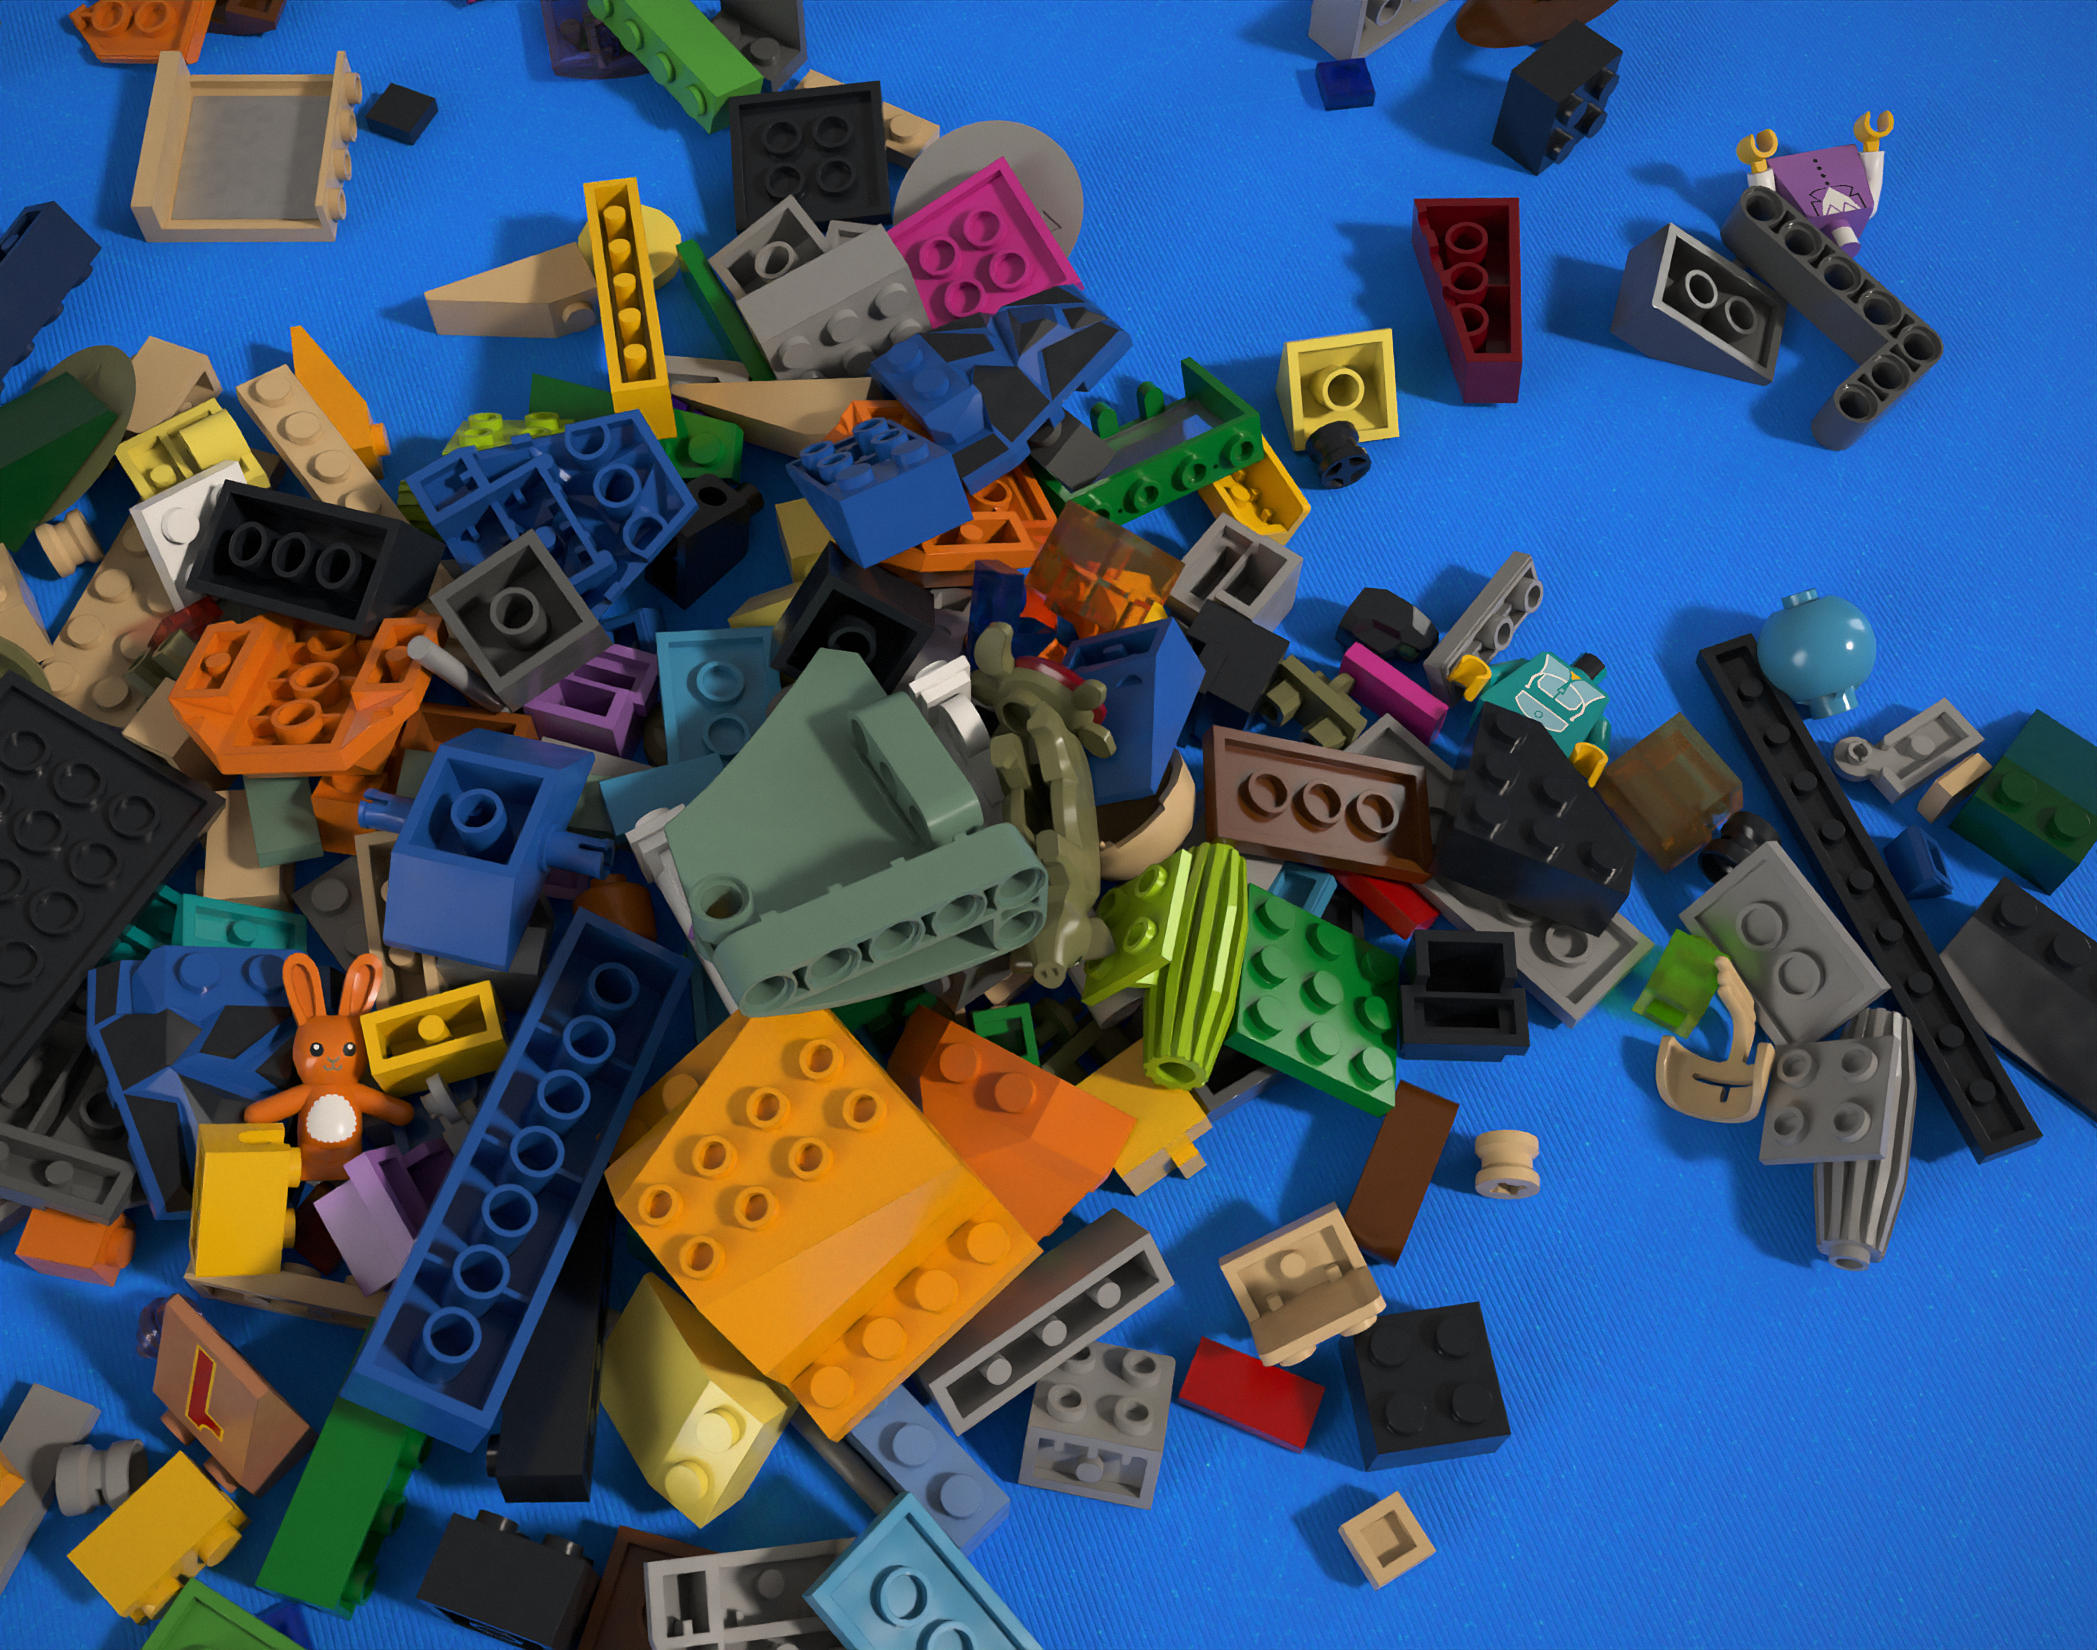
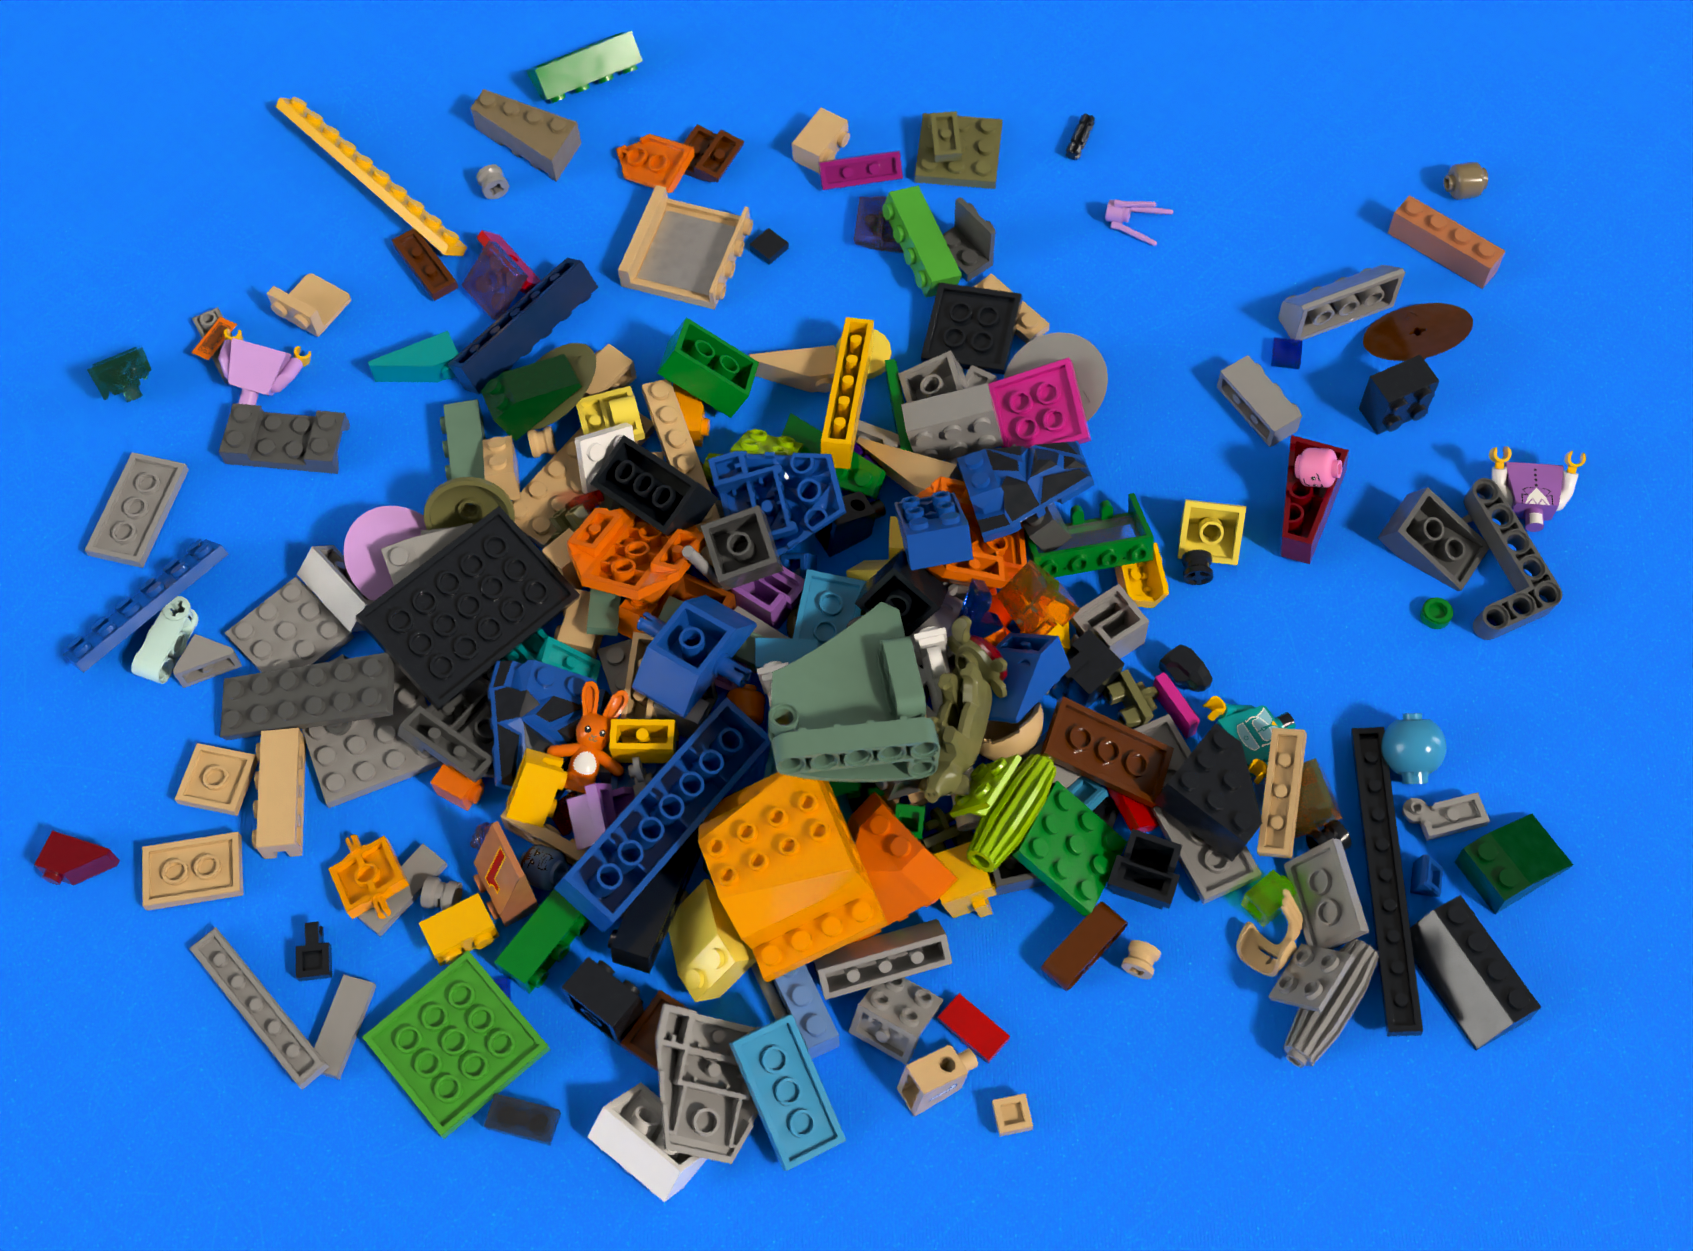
camera: 25 degrees right, 0 degrees up
(304, 1351) = (543, 866): none -> medium blue head
(353, 329) = (708, 367): none -> green brick
(1220, 1519) = (935, 1077): none -> tan torso
(1303, 1286) = (1013, 982): tan bracket -> none
(1333, 164) = (1259, 400): none -> light grey brick
(1424, 1387) = (1056, 1050): black brick -> none
(1486, 624) = (1242, 680): light grey tile -> none
(1487, 232) = (1318, 467): none -> bright pink head
(1647, 788) = (1282, 793): none -> tan plate
(1749, 428) = (1436, 613): none -> green tile
(1953, 787) = (1458, 840): tan tile -> none

